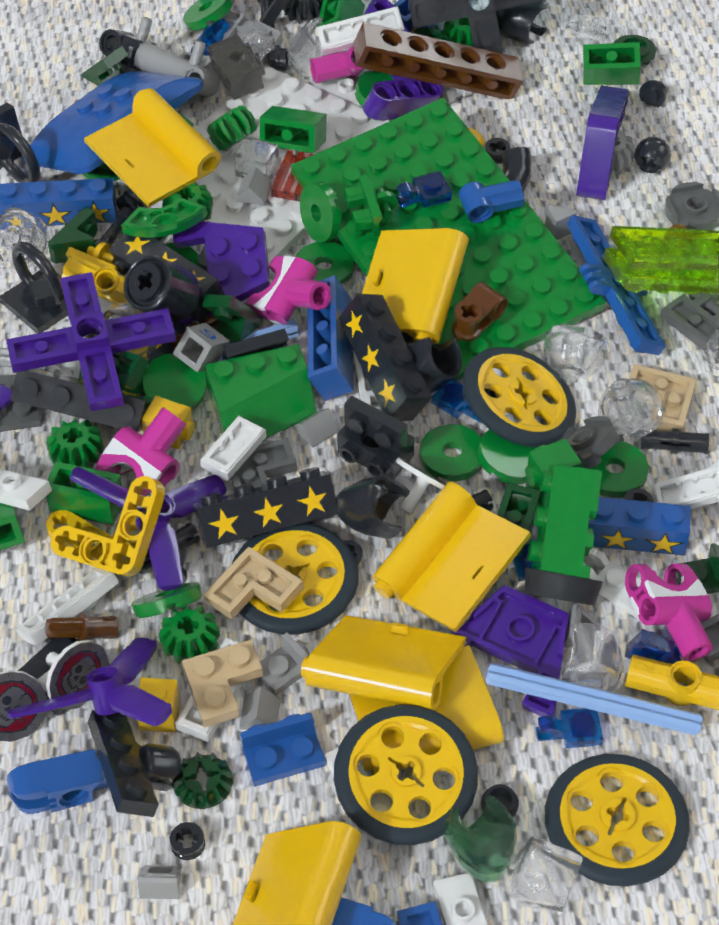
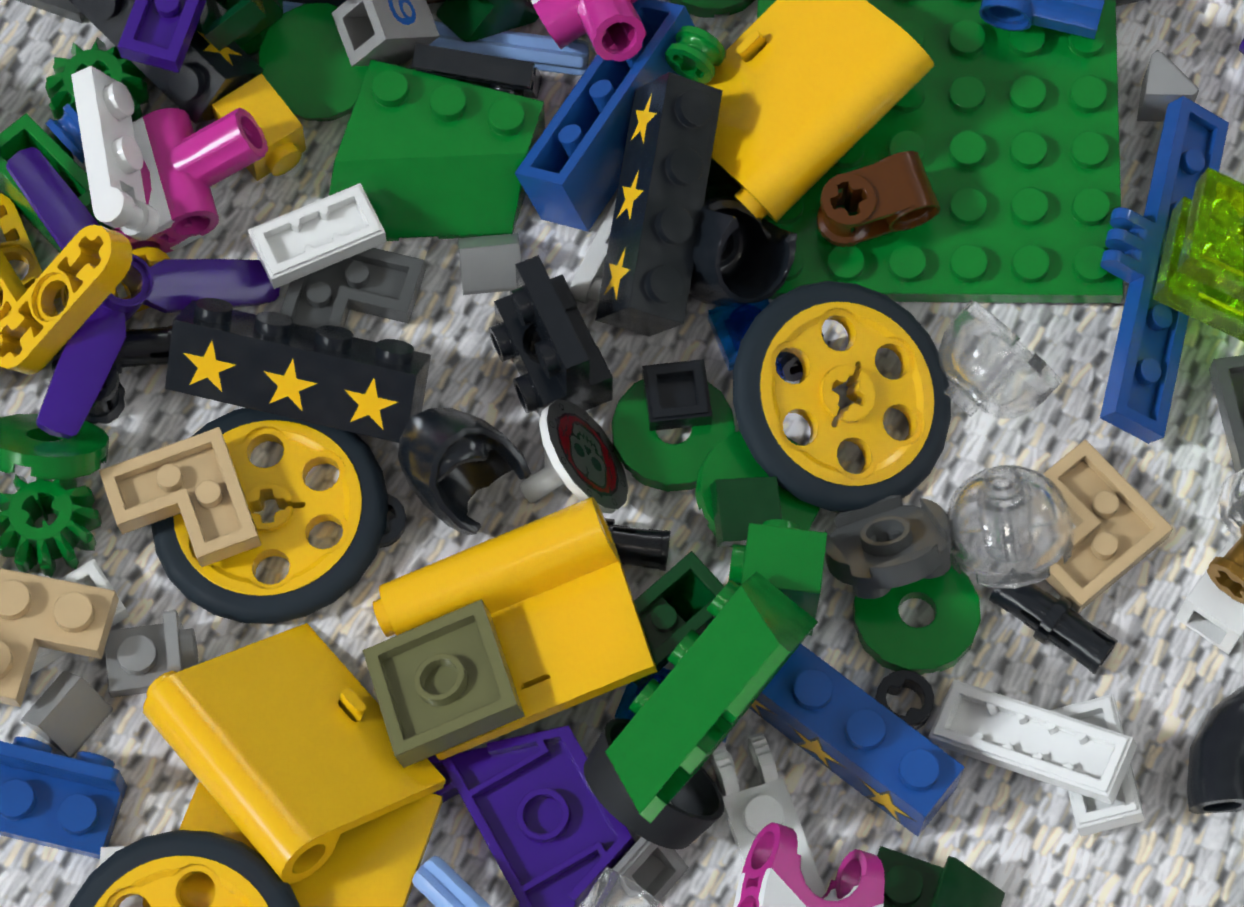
camera: 30 degrees right, 15 degrees up
(84, 457) = (68, 131): none -> blue bush
(114, 455) = (112, 154): none -> white plate
(350, 286) = (695, 54): none -> green bush
(436, 594) = (442, 683): none -> olive plate
(445, 434) = (676, 395): none -> black tile
(512, 460) = (743, 502): none -> dark green tile

